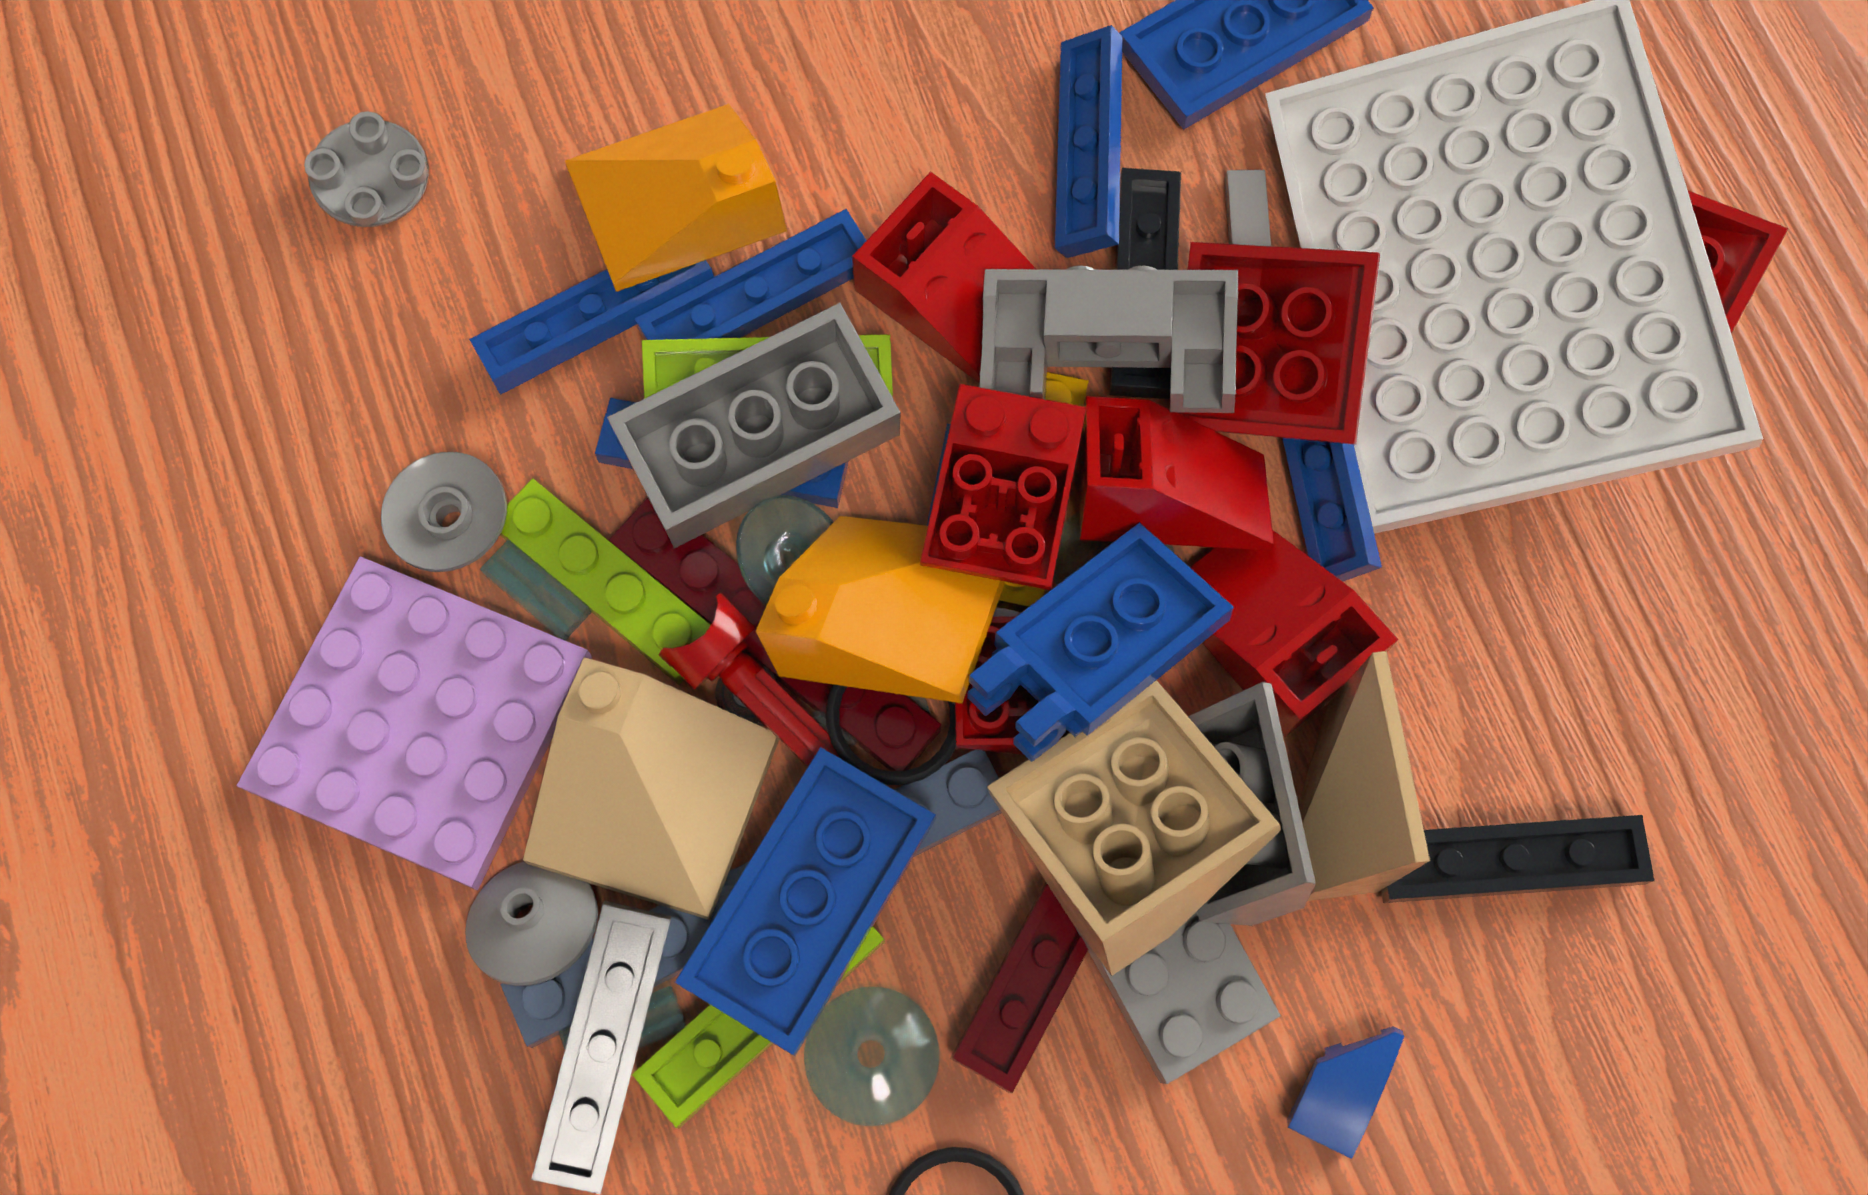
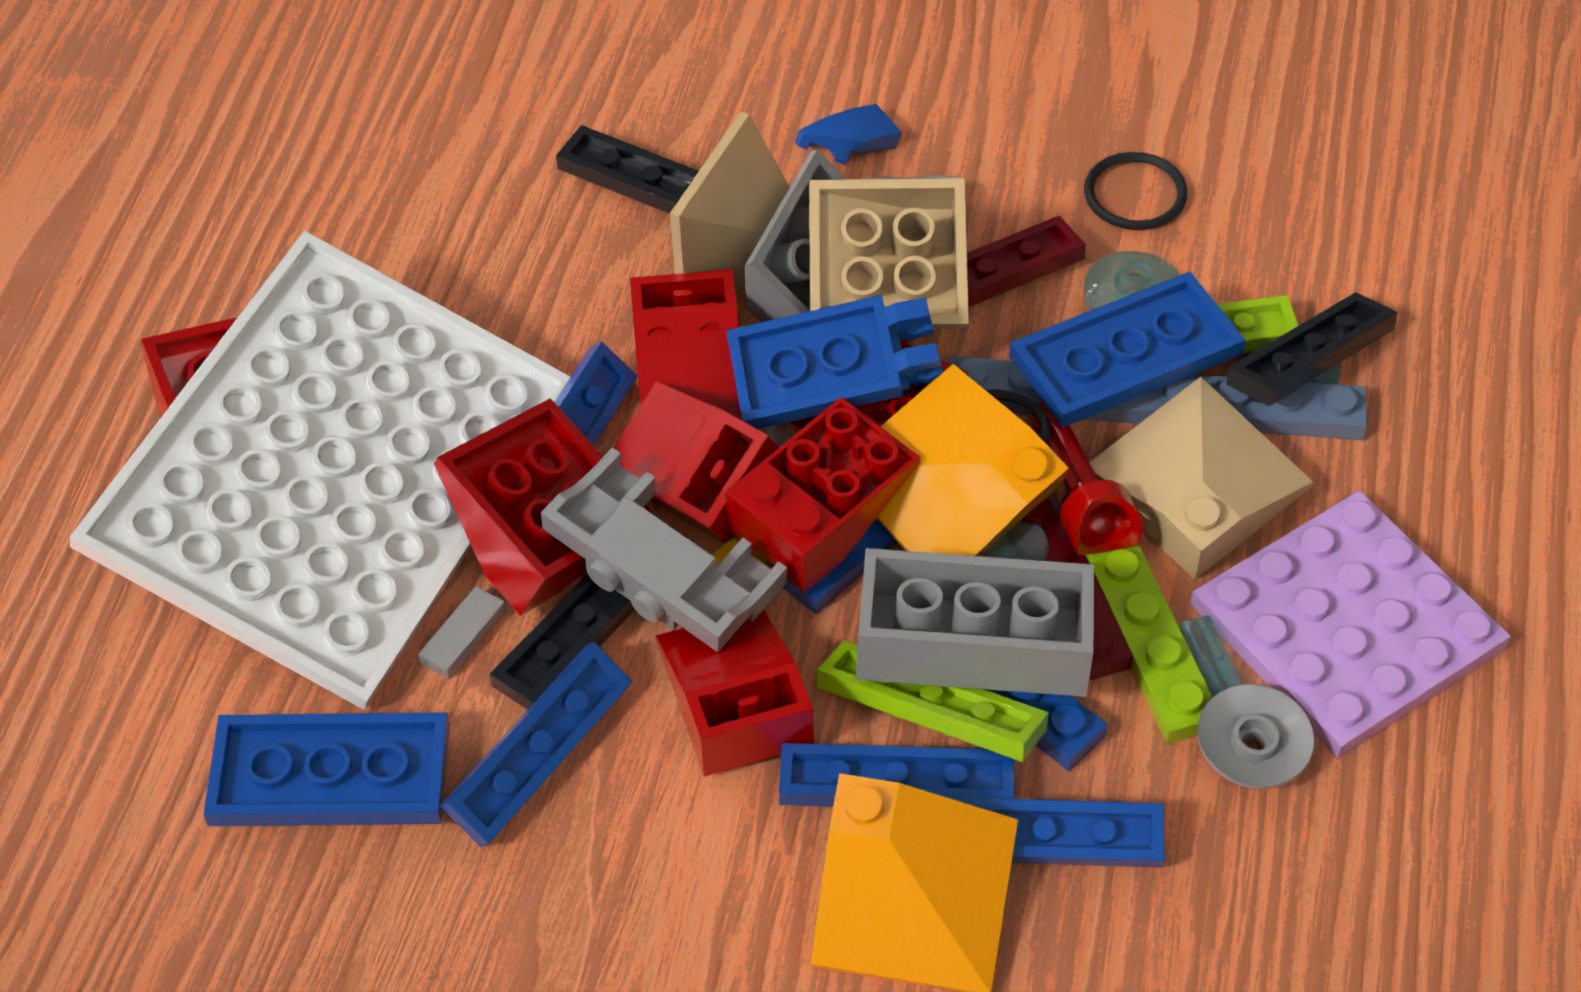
camera: 145 degrees left, 20 degrees down
(543, 941) = (1337, 472): light grey dish -> none

